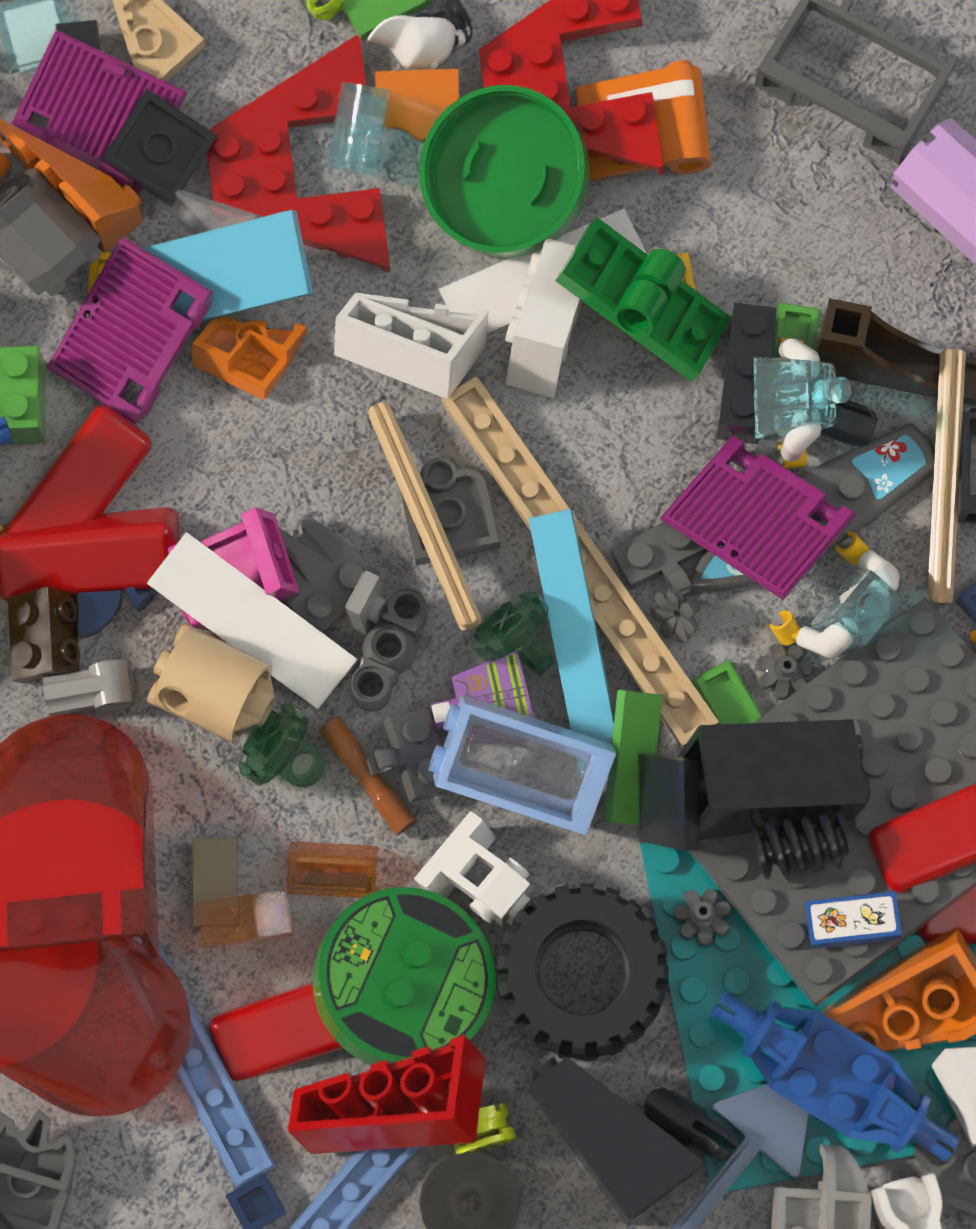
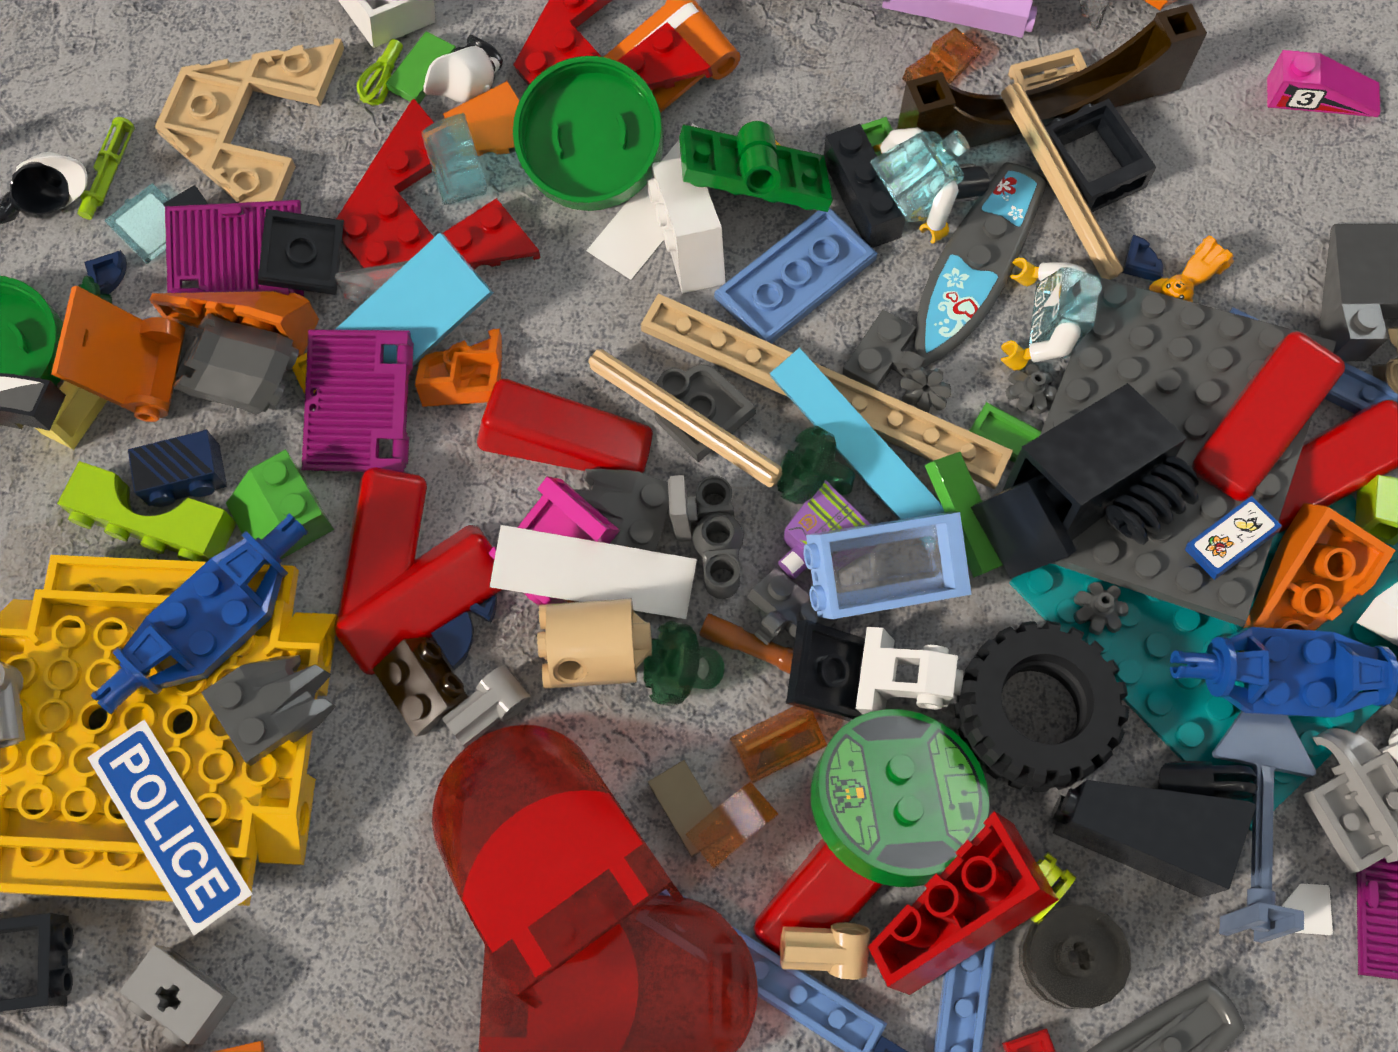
camera: 30 degrees left, 5 degrees down
(265, 1076) = (838, 950): none -> tan piece
(308, 464) = (560, 431): none -> red piece
(408, 828) = (825, 670): none -> black tile
(410, 342) = (590, 294): white wedge -> none
(625, 428) = (795, 275): none -> medium blue tile
(757, 518) = (945, 278): magenta window -> none
(916, 282) = (947, 55): none -> clear orange slope

